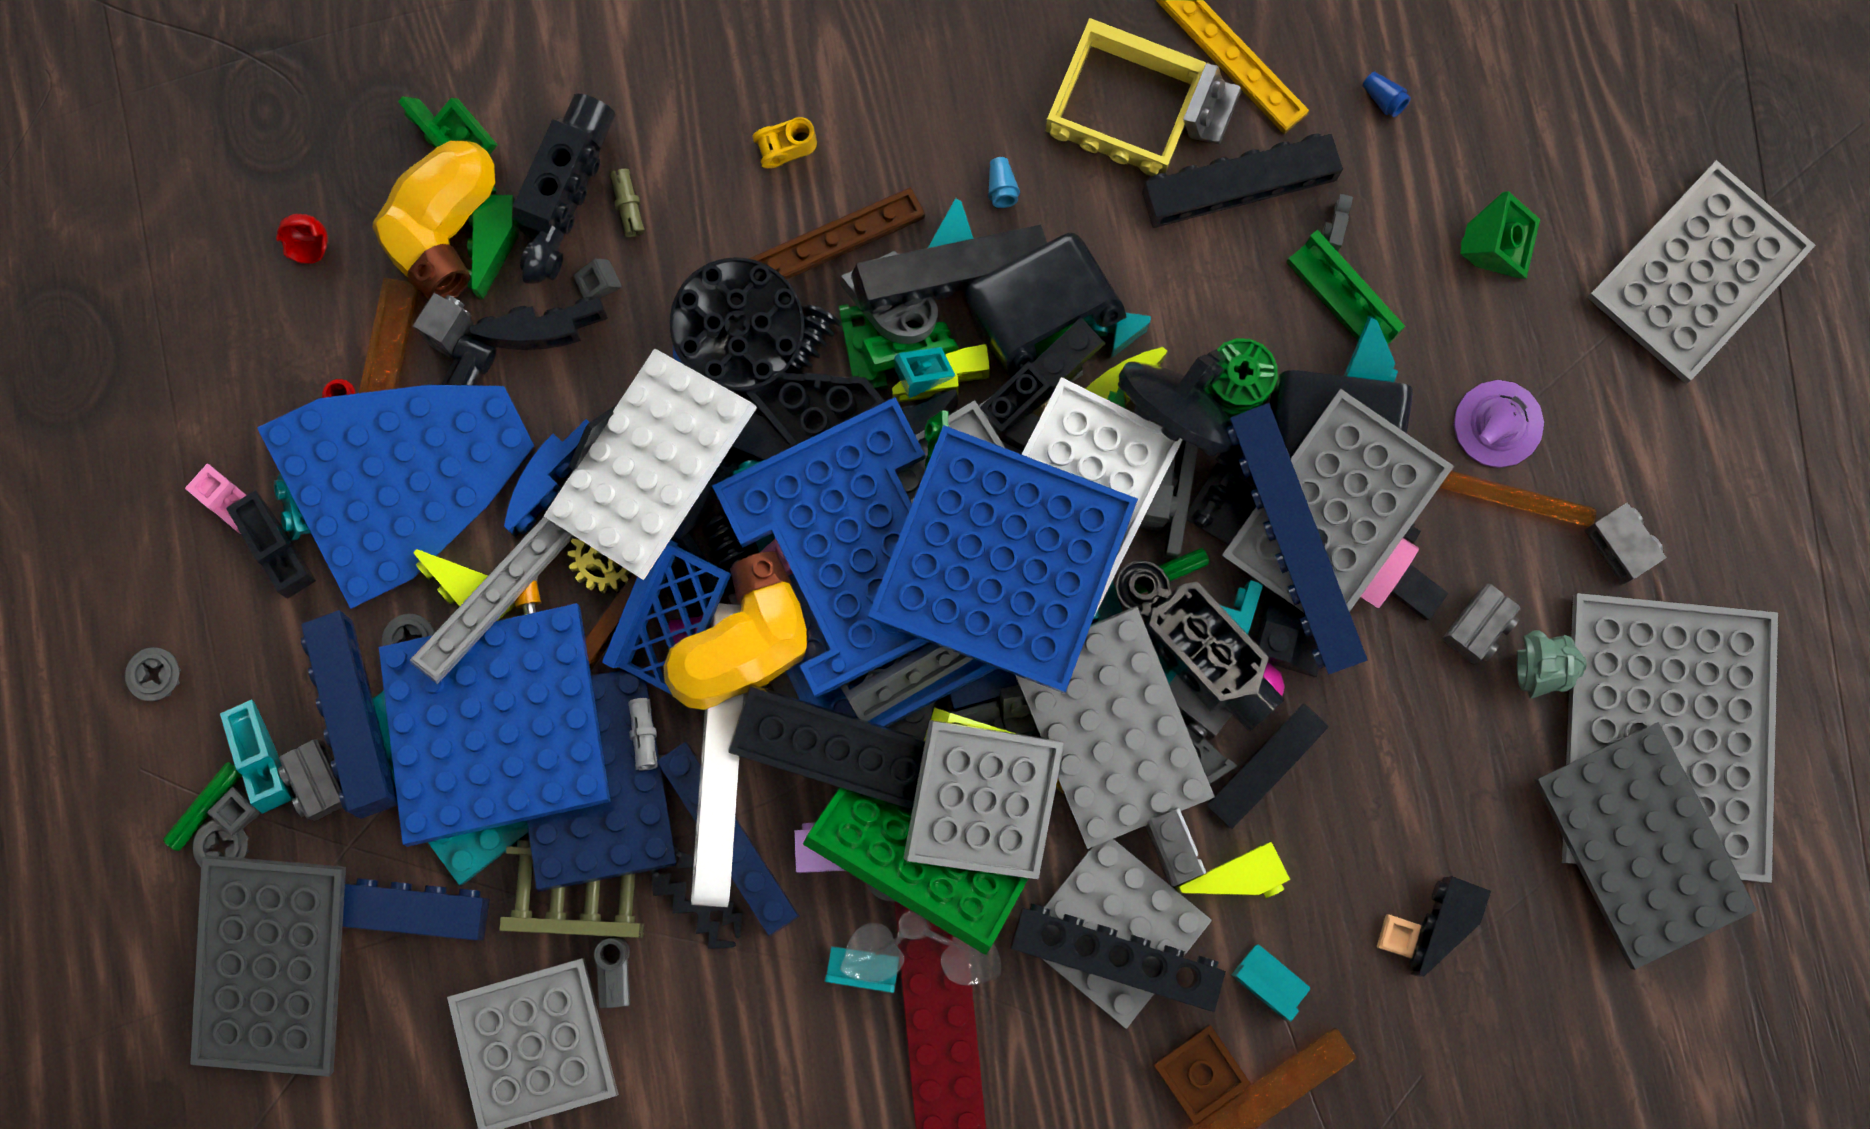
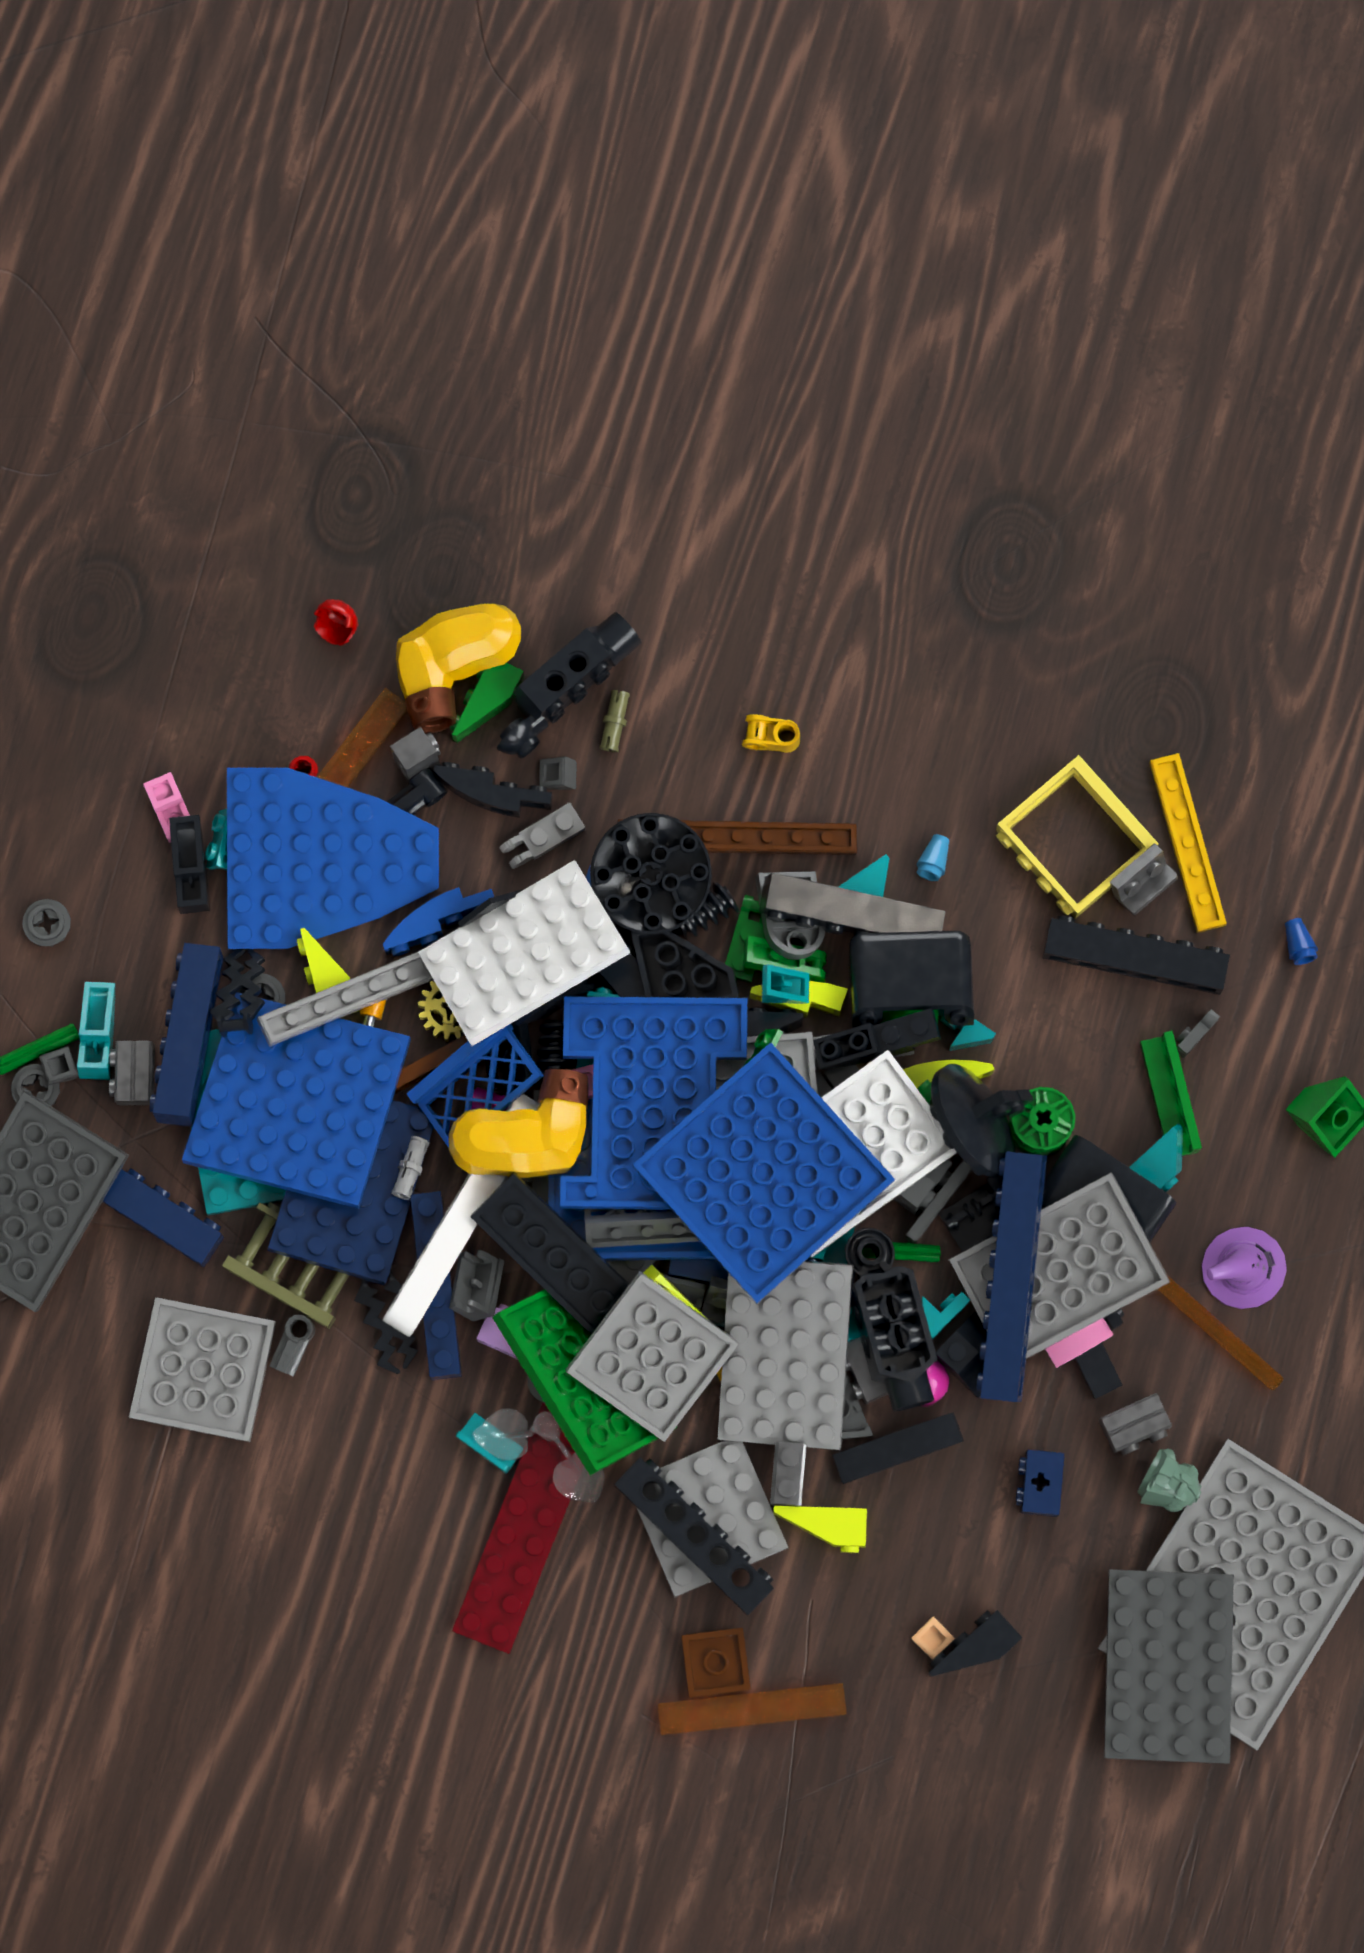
camera: 30 degrees right, 0 degrees up
(374, 673) = (223, 1011): none -> black piece
(450, 124) = (501, 585): green bracket -> none
(613, 344) = (545, 835): none -> light grey hinge
(769, 818) = (476, 1285): none -> dark grey hinge
(1271, 982) = (810, 1620): teal panel -> none
(1420, 710) = (1047, 1500): none -> dark blue brick
(1626, 543) = (1292, 1418): flat silver brick -> none

